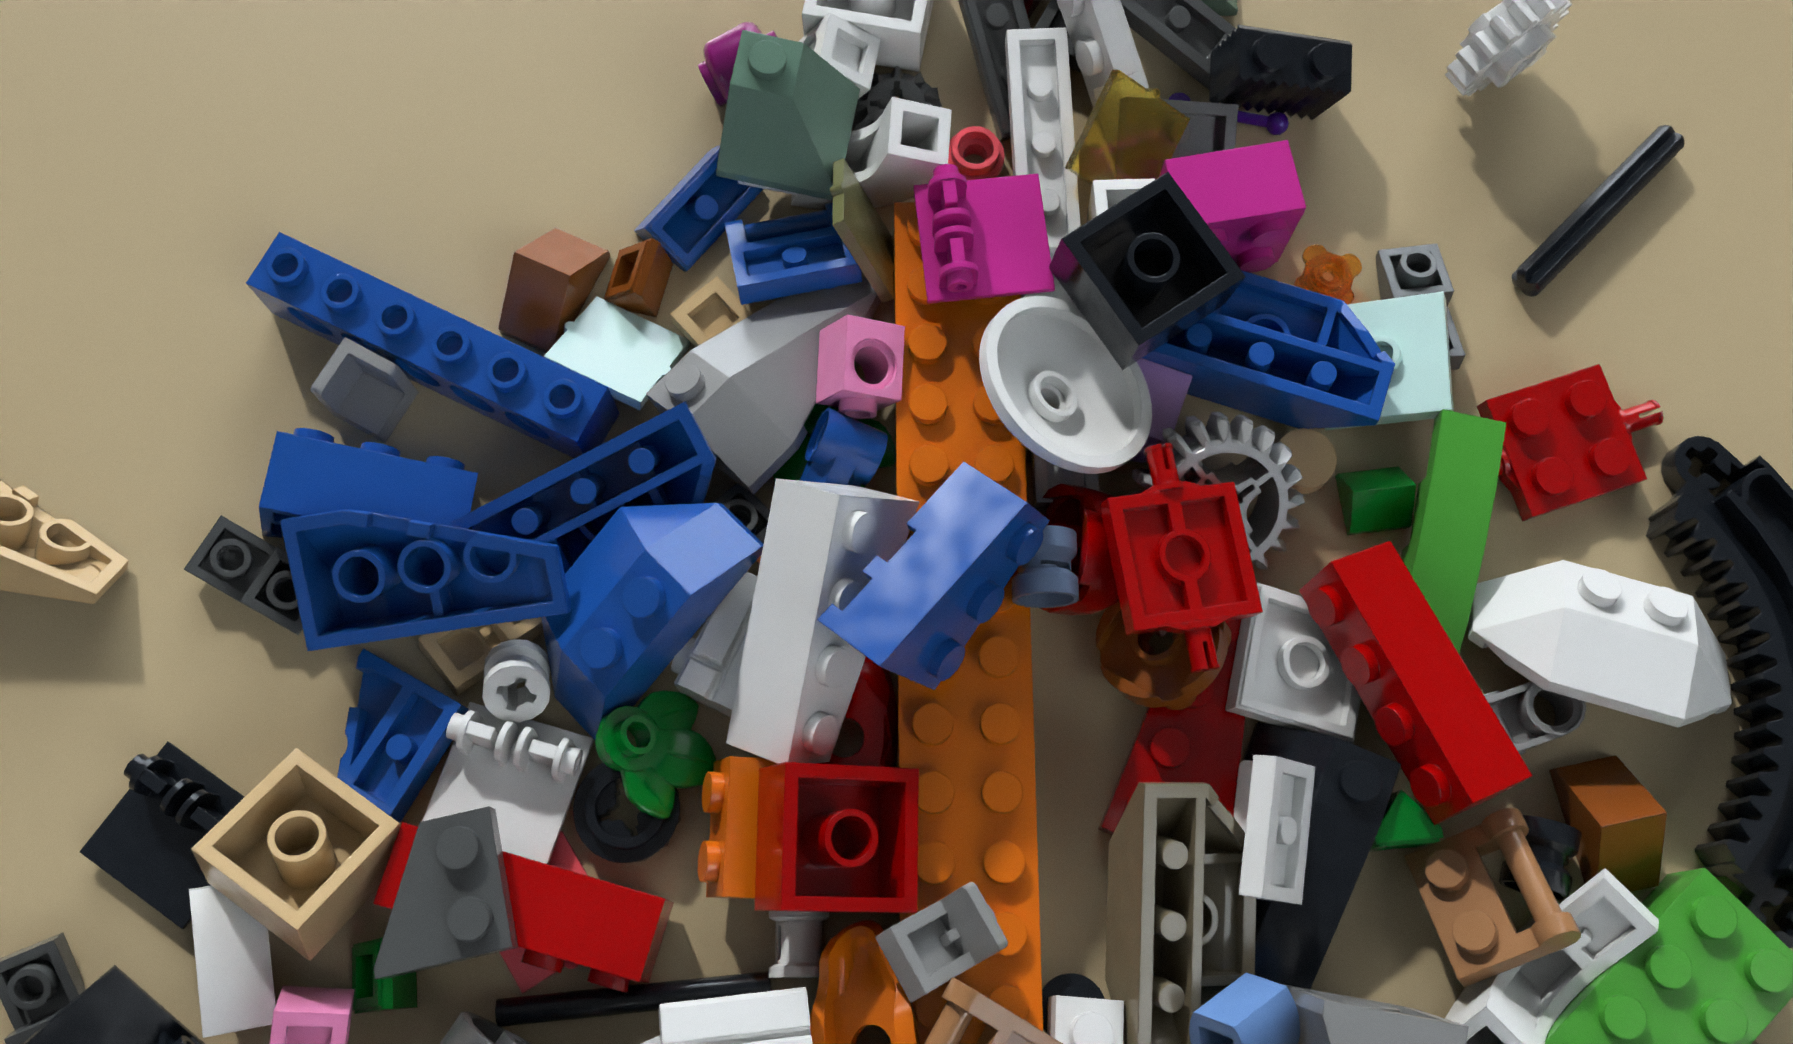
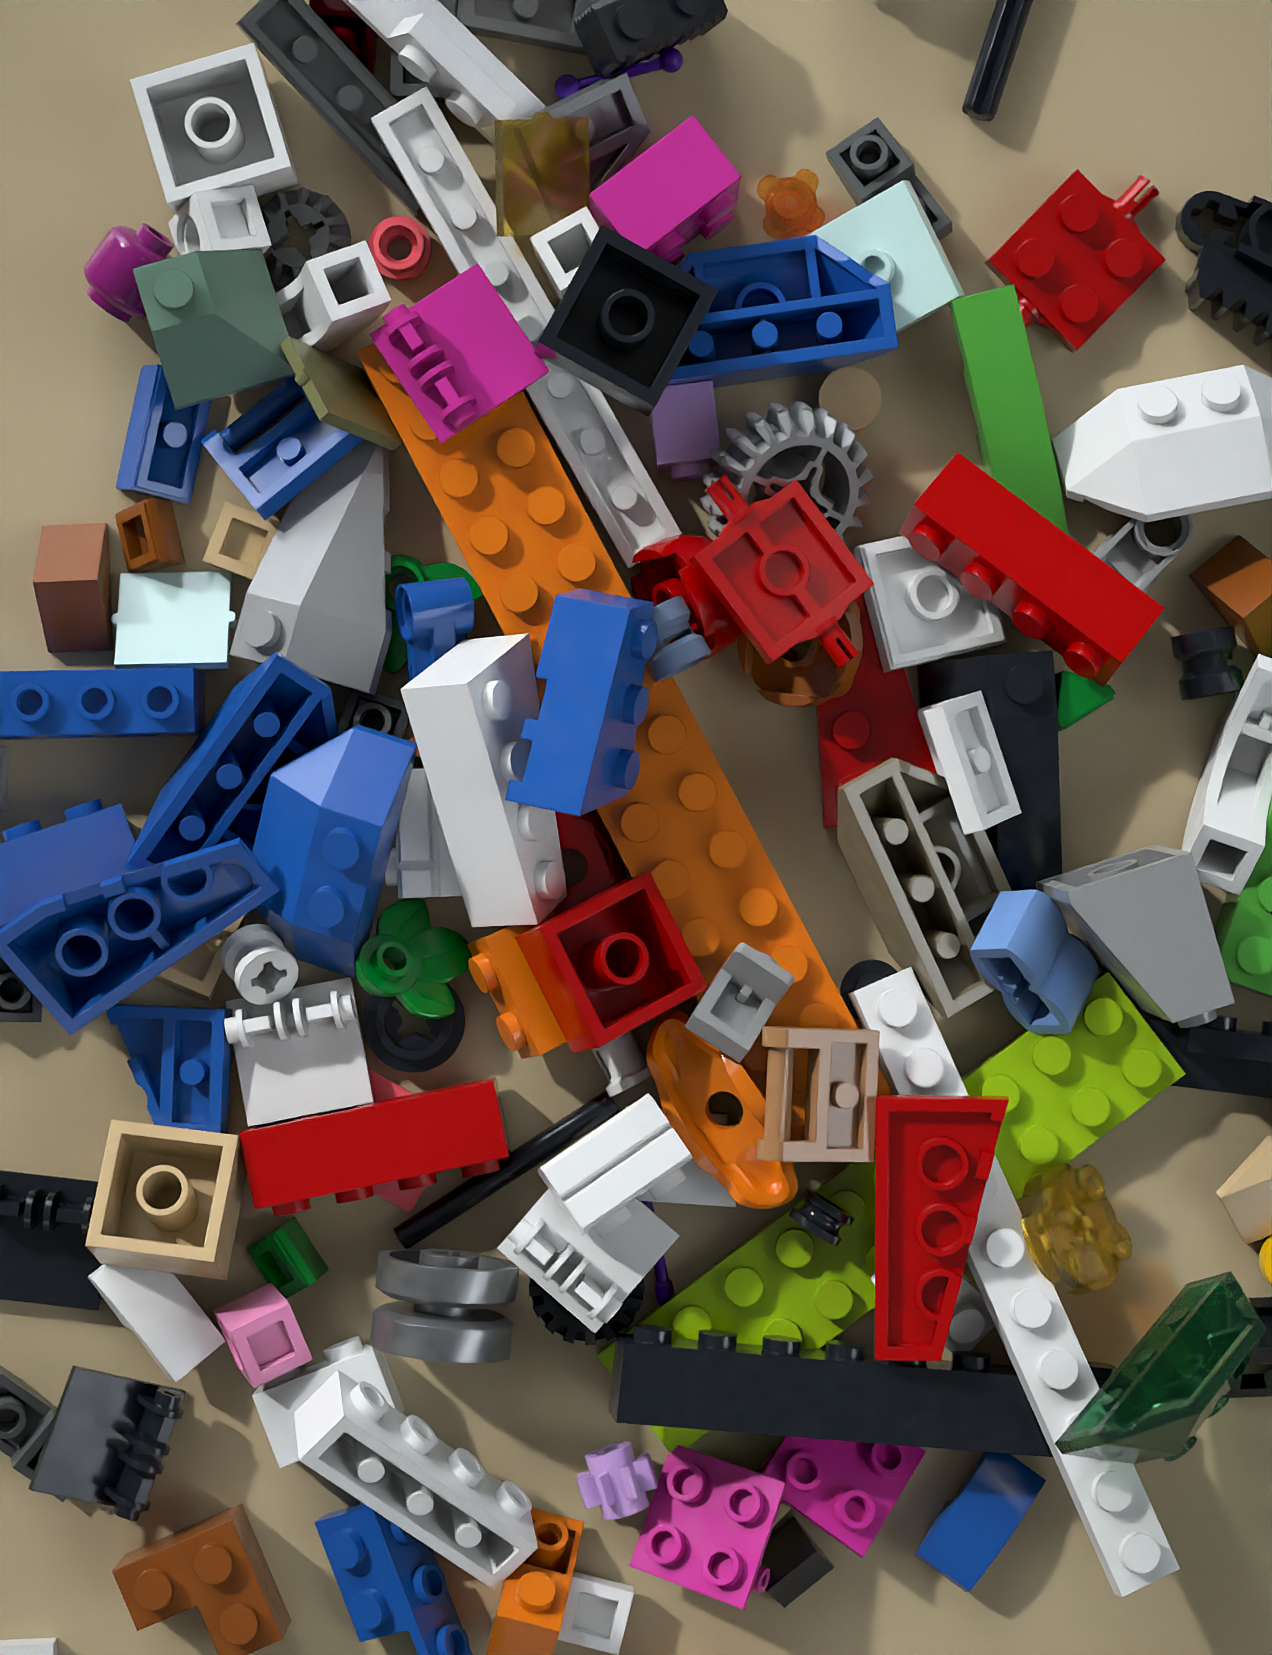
camera: 25 degrees left, 15 degrees up
(450, 897) = (317, 1171): dark grey wing -> none
(877, 349) = (426, 513): bright pink brick -> none
(1063, 387) = (640, 463): white dish -> none
(1376, 500) = (930, 403): green slope -> none
(1470, 909) = (1160, 736): medium nougat plate -> none

